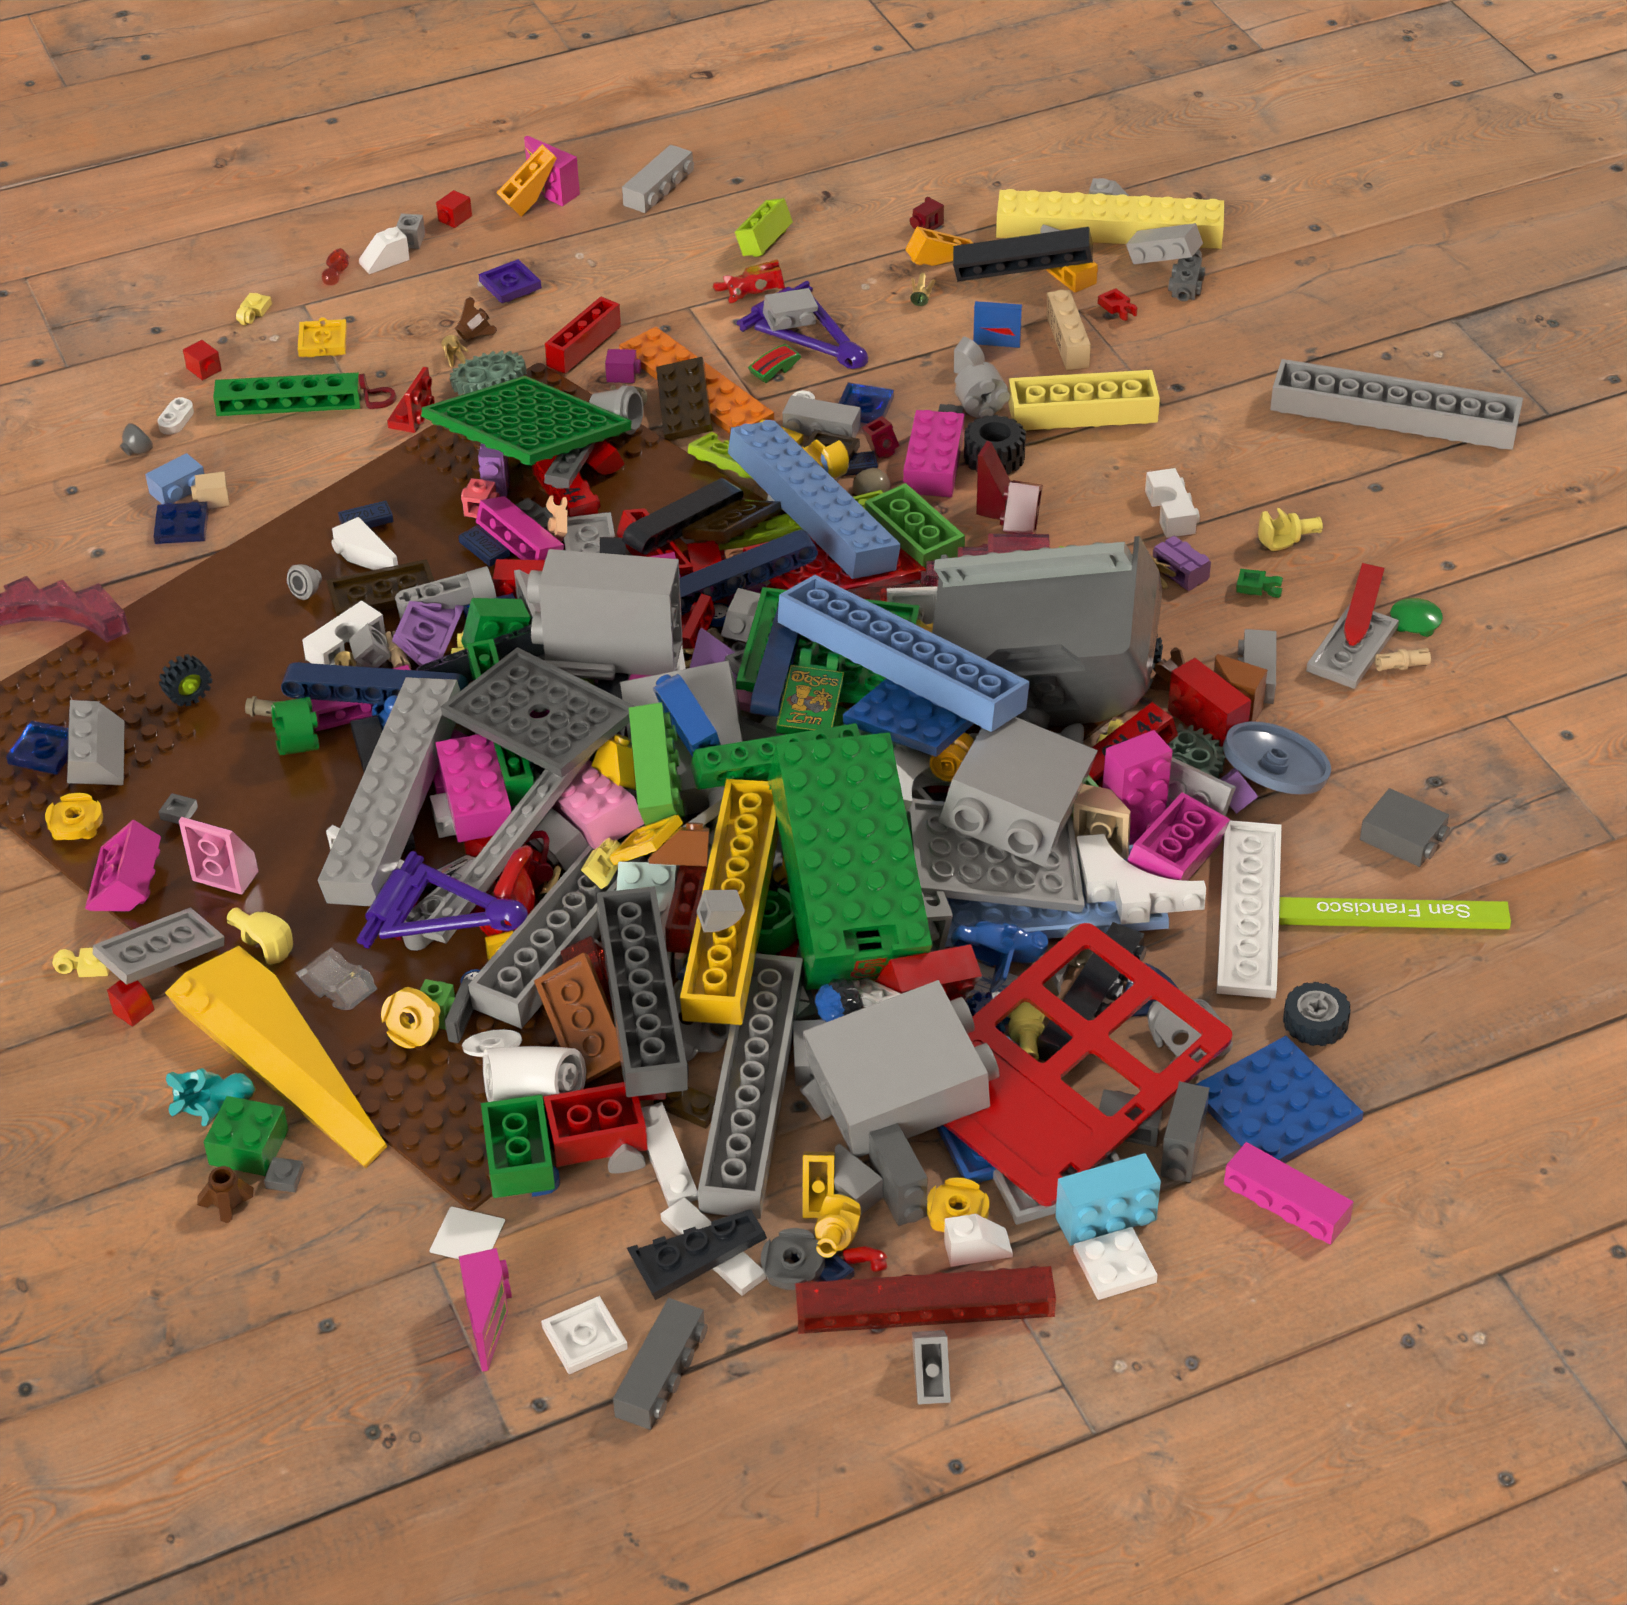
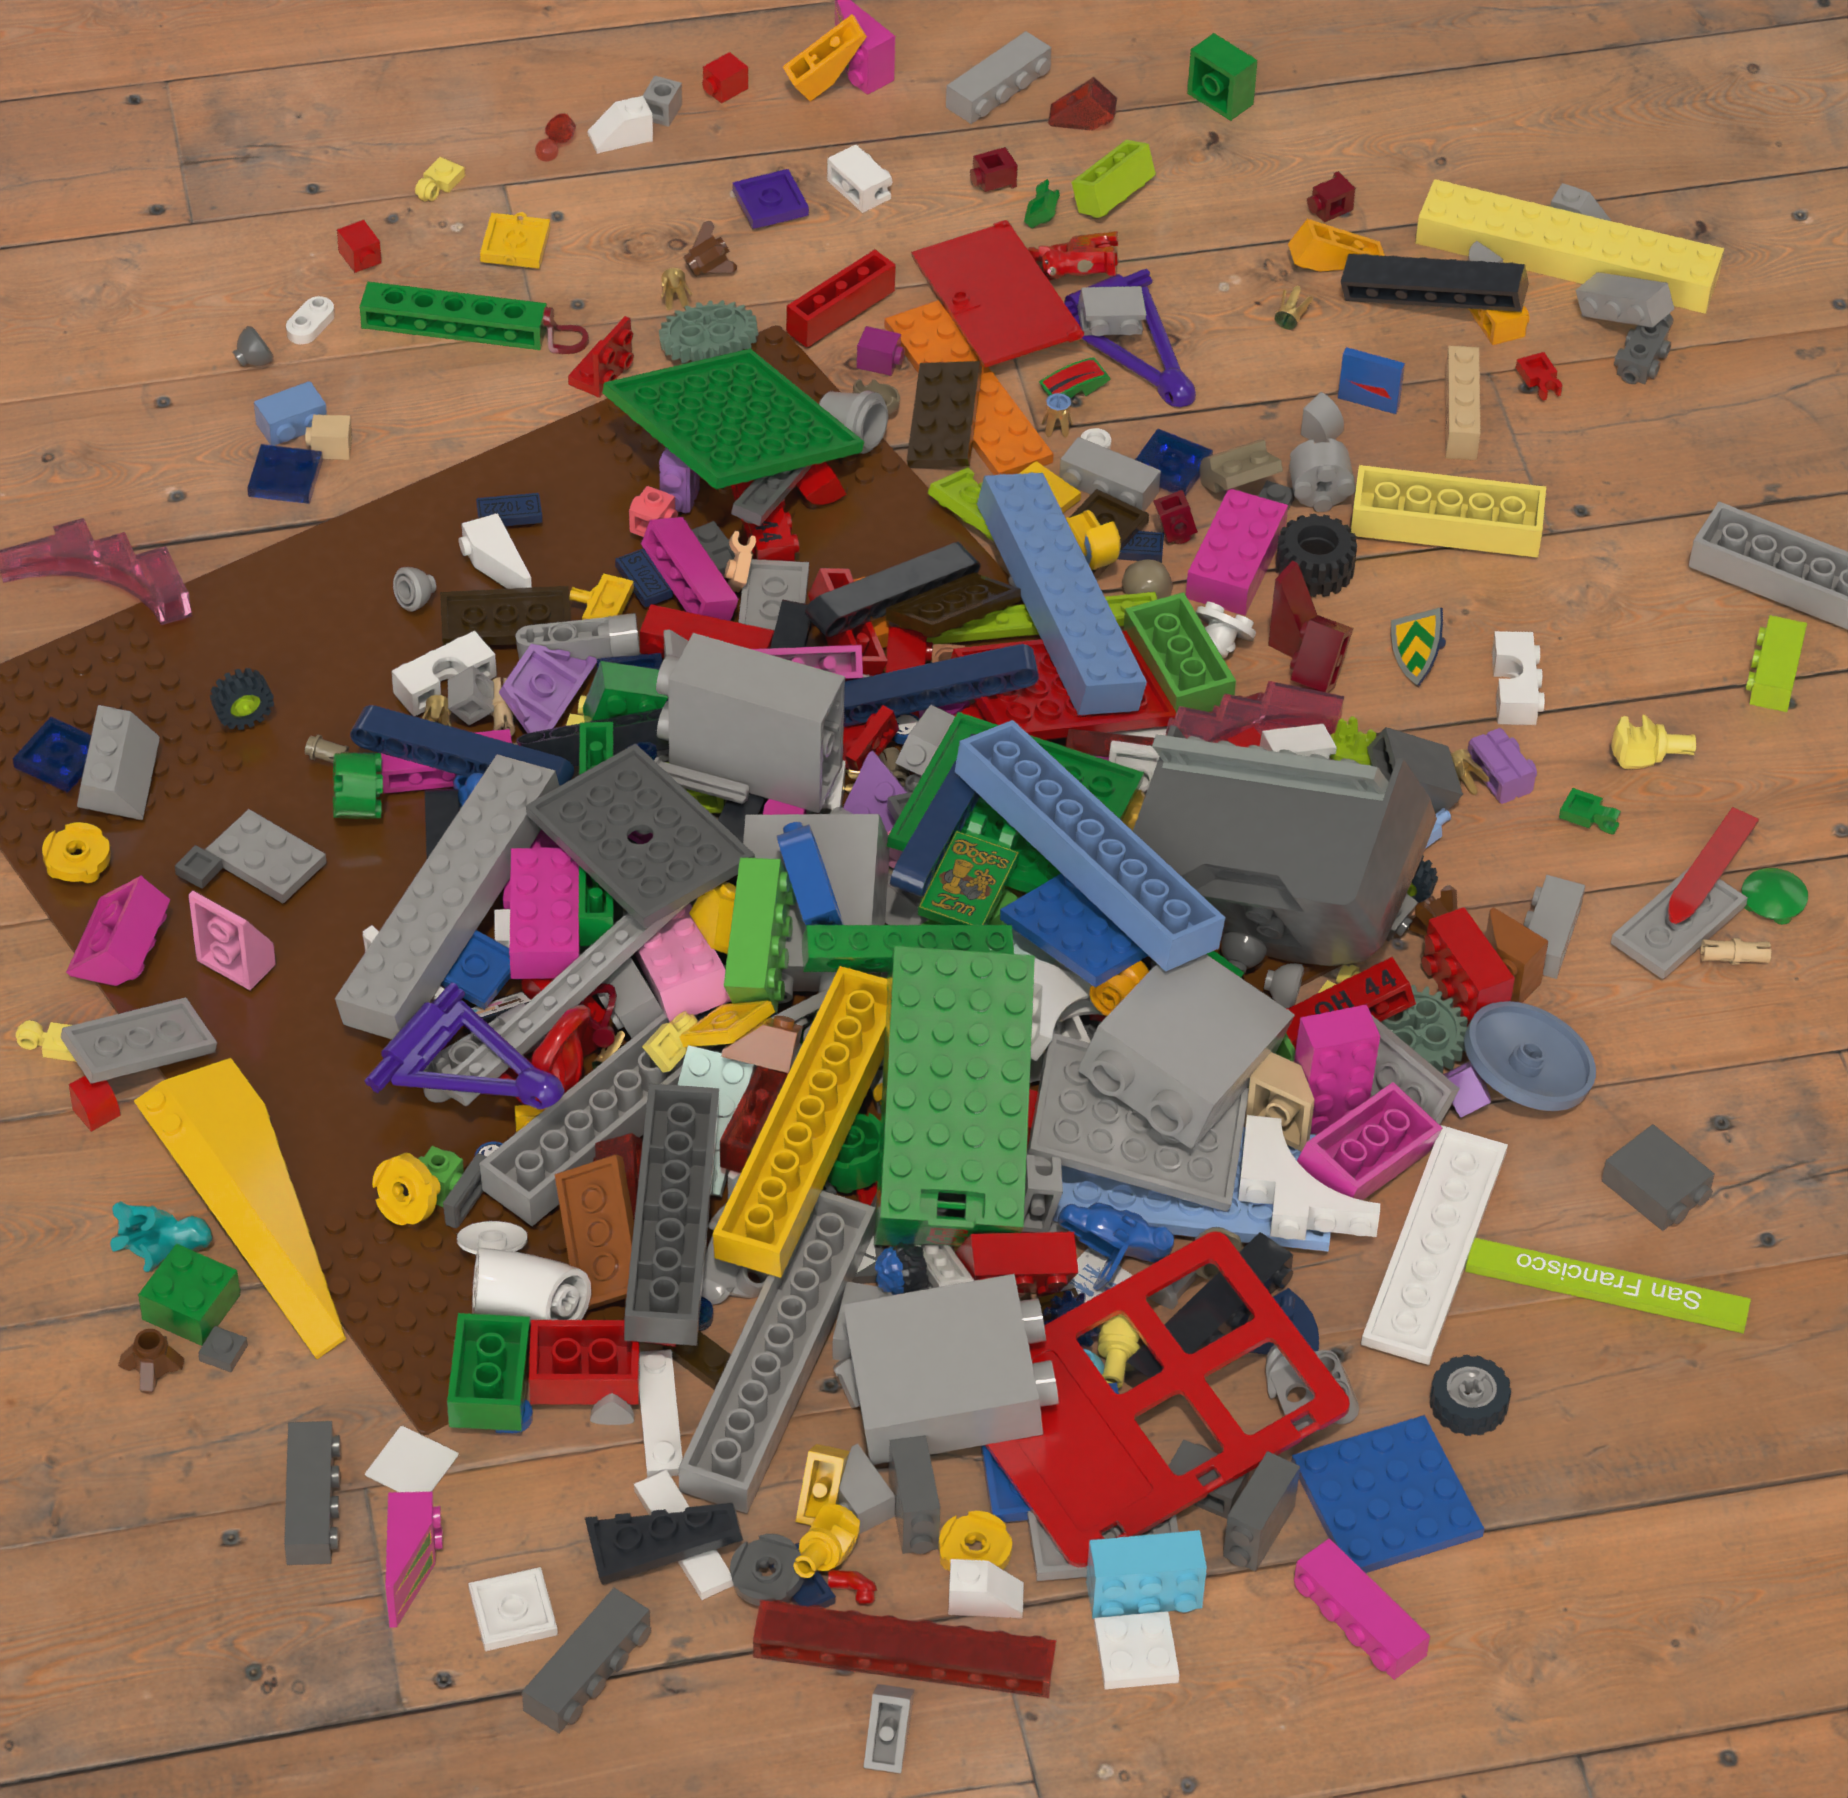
camera: 10 degrees right, 5 degrees up
(232, 792) = (267, 856): none -> light grey plate
(267, 930) = (265, 1045): light yellow piece -> none
(337, 979) = (337, 1125): clear brick -> none
(387, 1274) = (310, 1493): none -> dark grey brick
(432, 840) = (480, 969): none -> blue tile
(458, 562) = (605, 599): none -> yellow plate
(573, 257) = (859, 178): none -> white brick
(673, 236) = (994, 170): none -> dark red brick
(700, 314) = (997, 294): none -> red door
(715, 255) = (1043, 206): none -> green plate
(719, 909) = (784, 1134): light grey brick -> none
(727, 187) = (1084, 107): none -> clear red slope
(769, 379) = (1058, 407): none -> pearl gold piece
(823, 151) = (1222, 76): none -> green brick
(917, 396) = (1238, 466): none -> dark tan brick
(944, 501) = (1224, 628): none -> white plate
(1090, 490) = (1417, 642): none -> shield
(1359, 461) = (1776, 663): none -> lime brick

